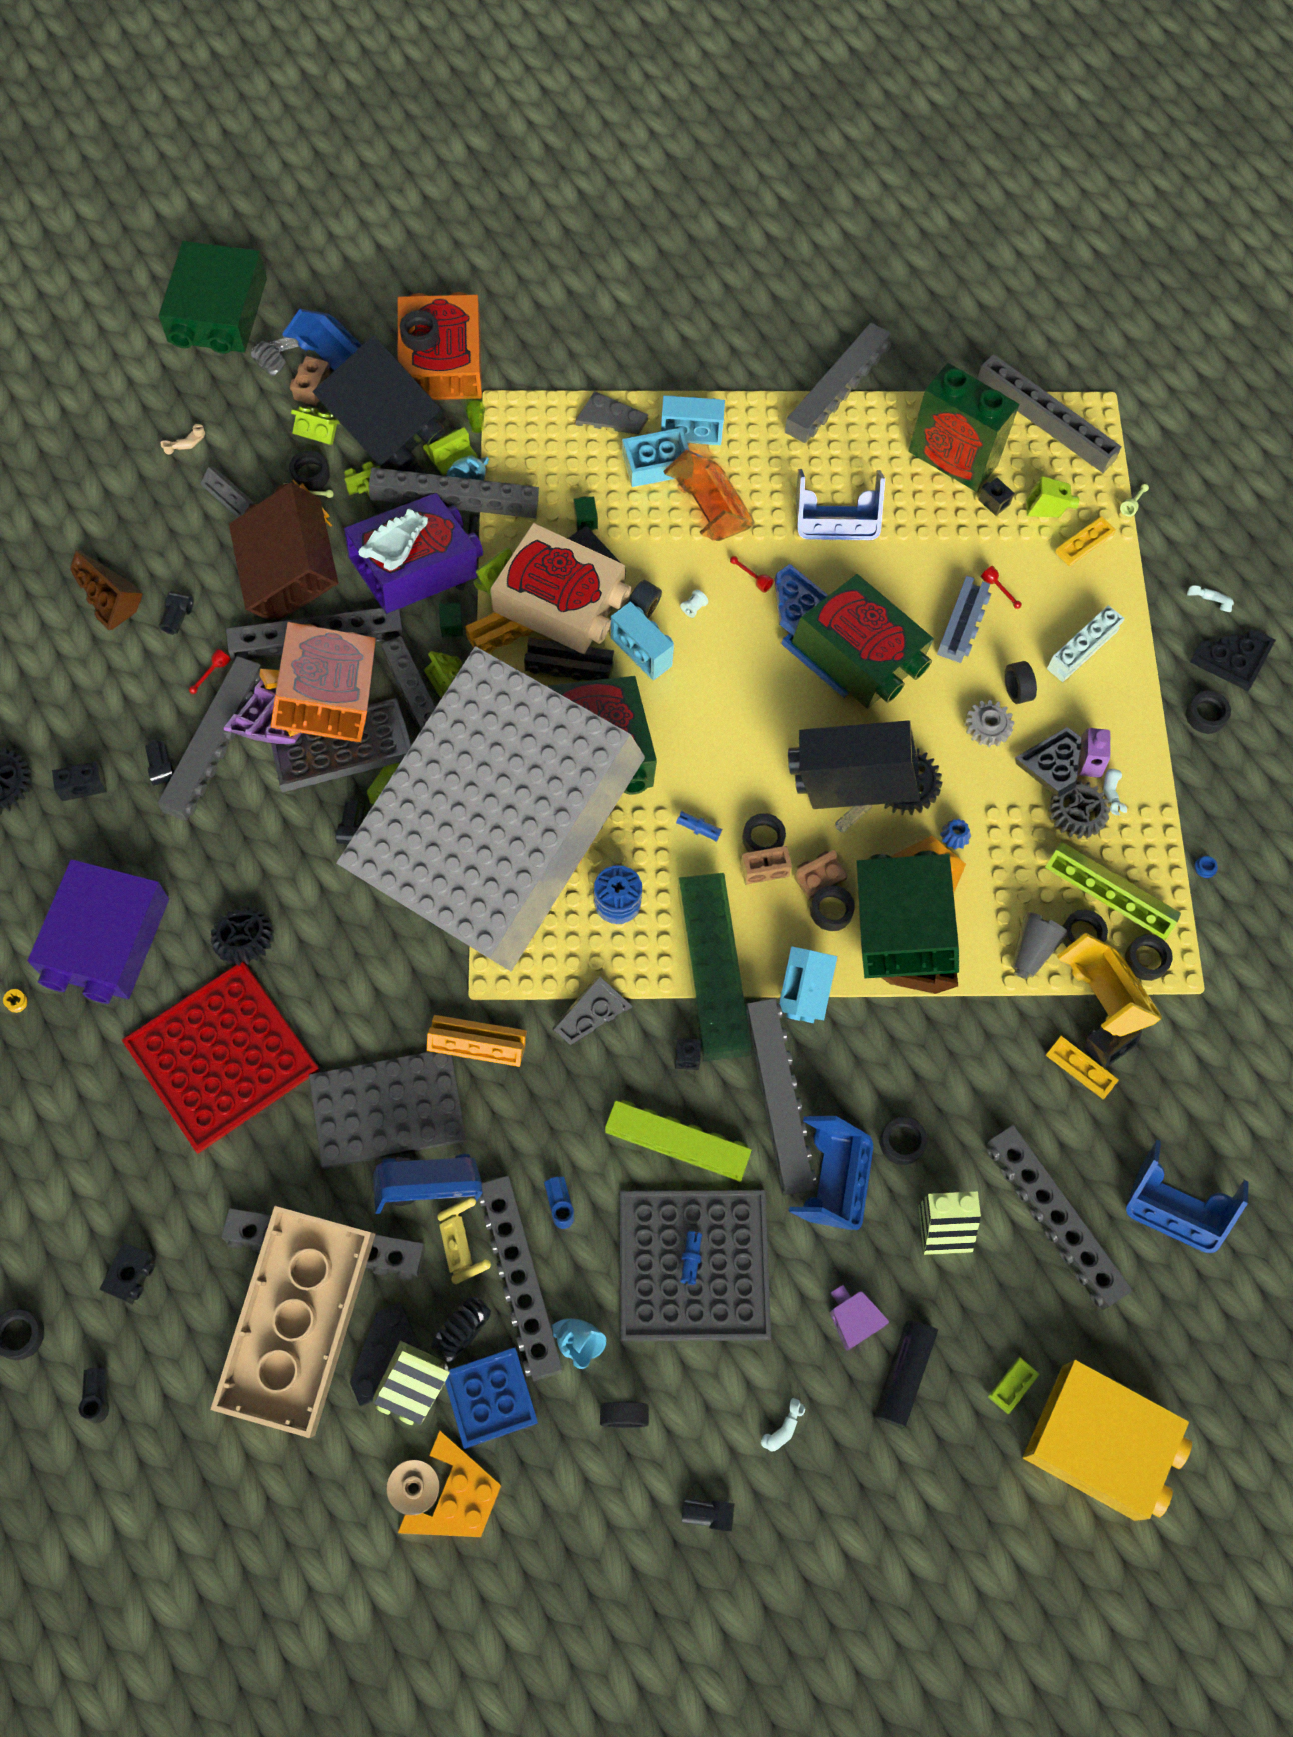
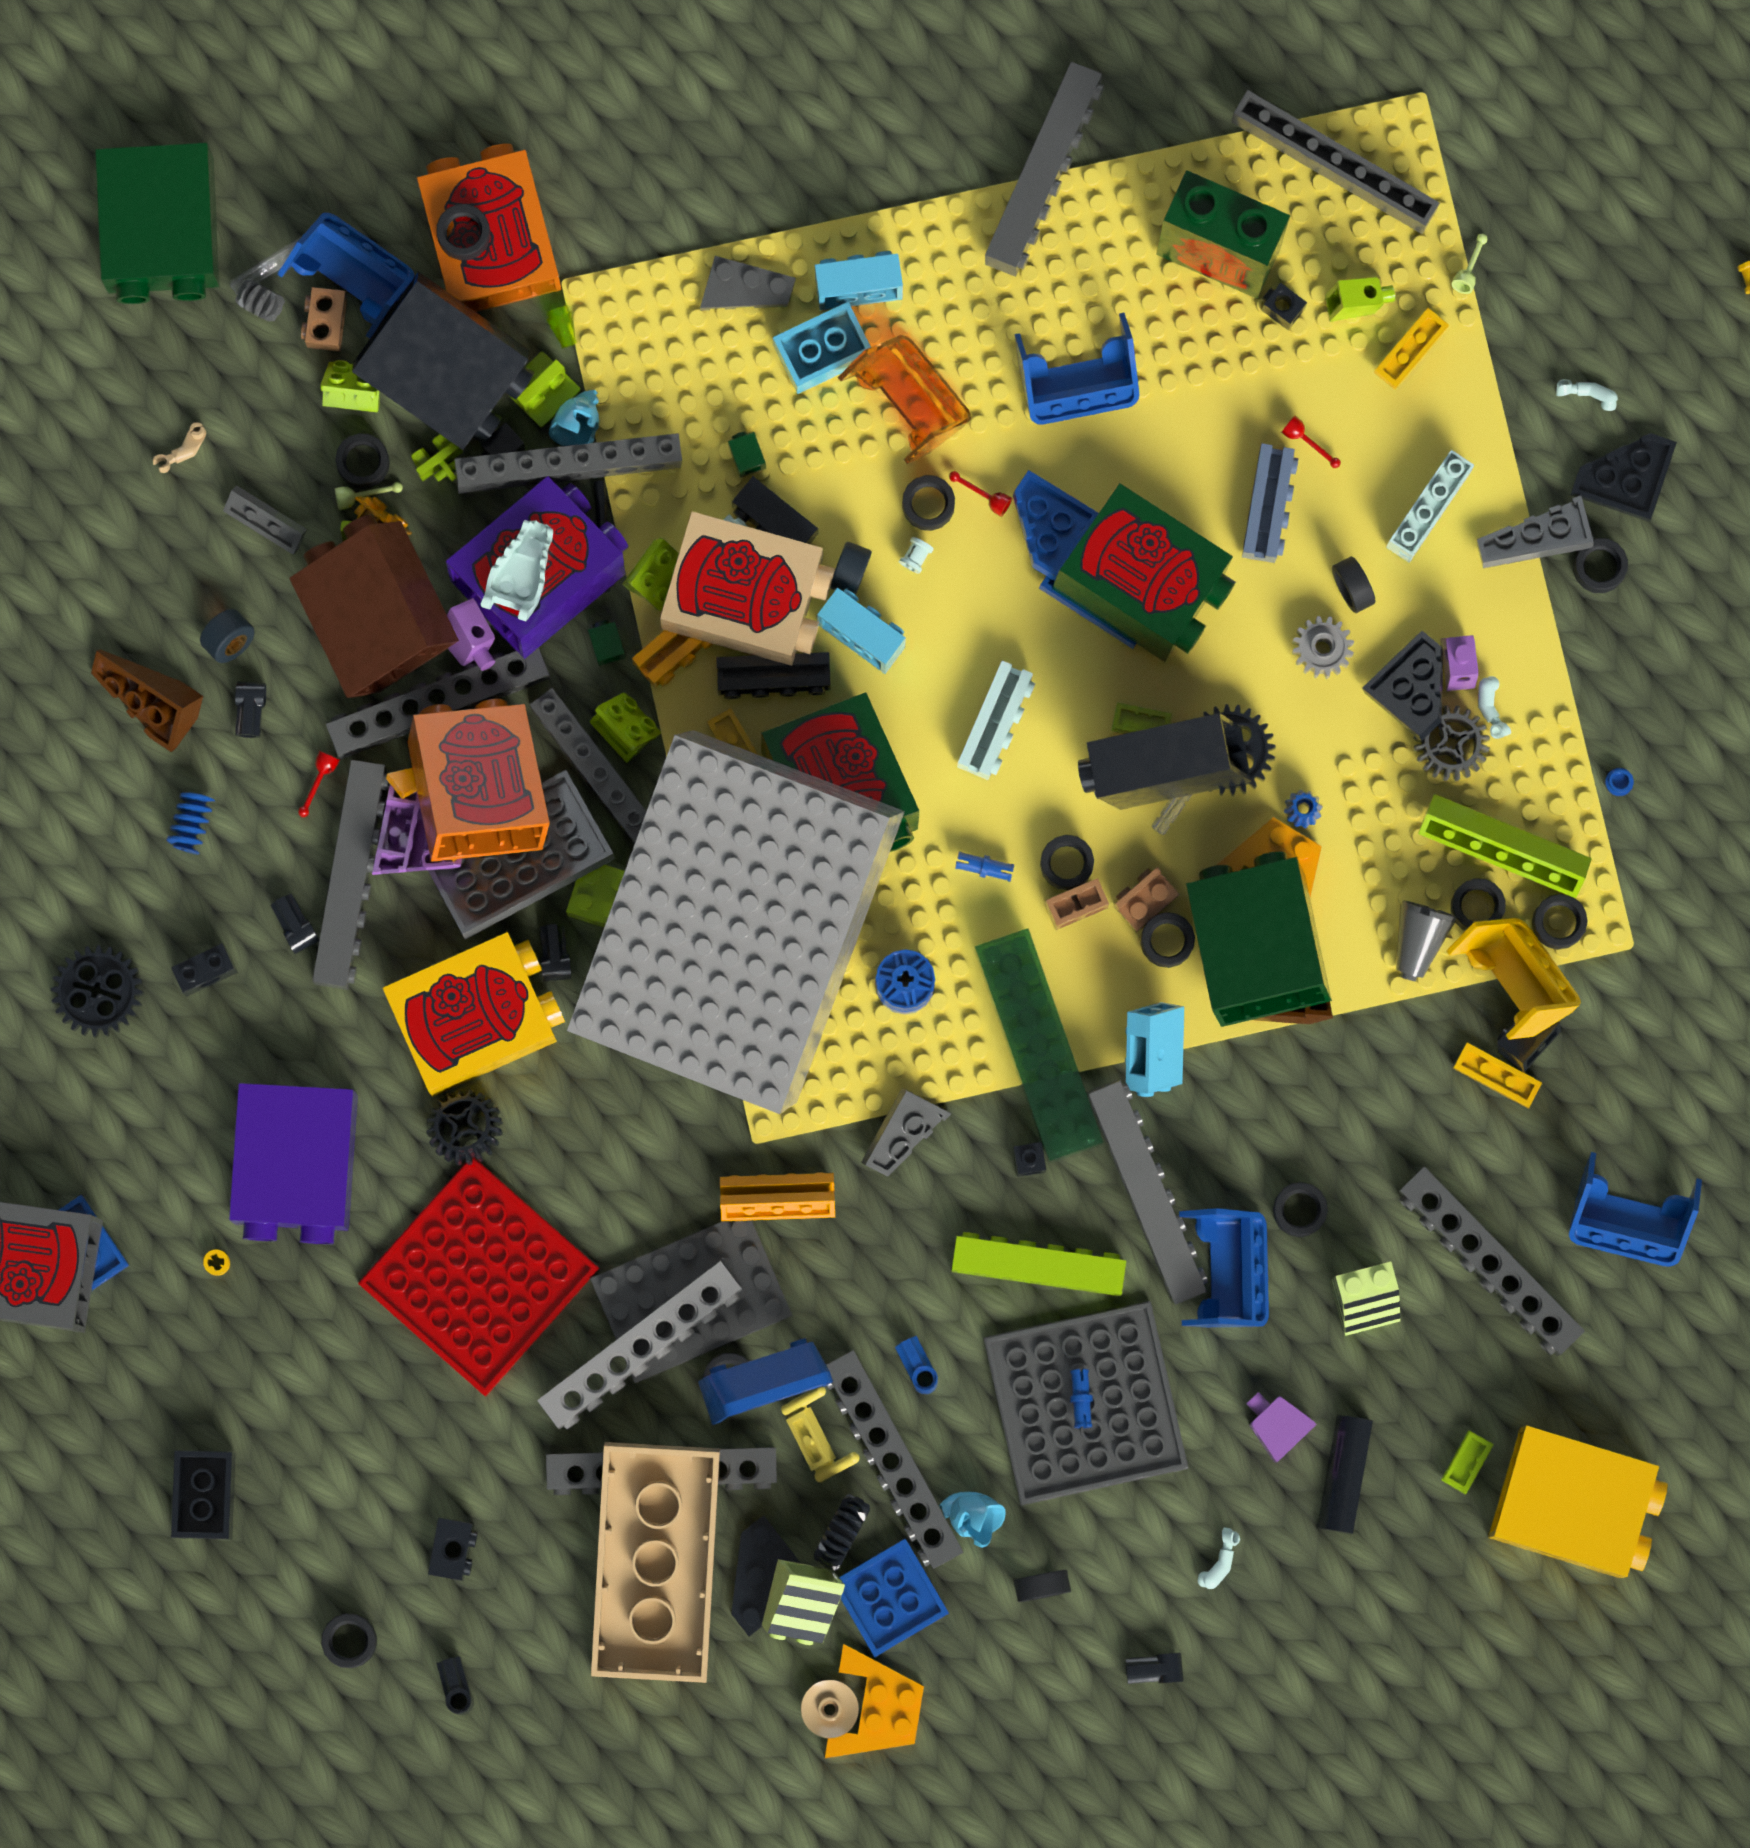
camera: 10 degrees left, 15 degrees up
(104, 675) = (189, 822): none -> blue piece
(174, 559) = (227, 636): none -> black wheel
(273, 851) = (473, 1012): none -> brick
(295, 1142) = (554, 1401): none -> light grey brick
(351, 588) = (473, 635): none -> medium lavender torso
(708, 585) = (922, 482): none -> black tyre
(729, 725) = (995, 721): none -> light aqua brick
(1171, 681) = (1550, 534): none -> dark grey wing

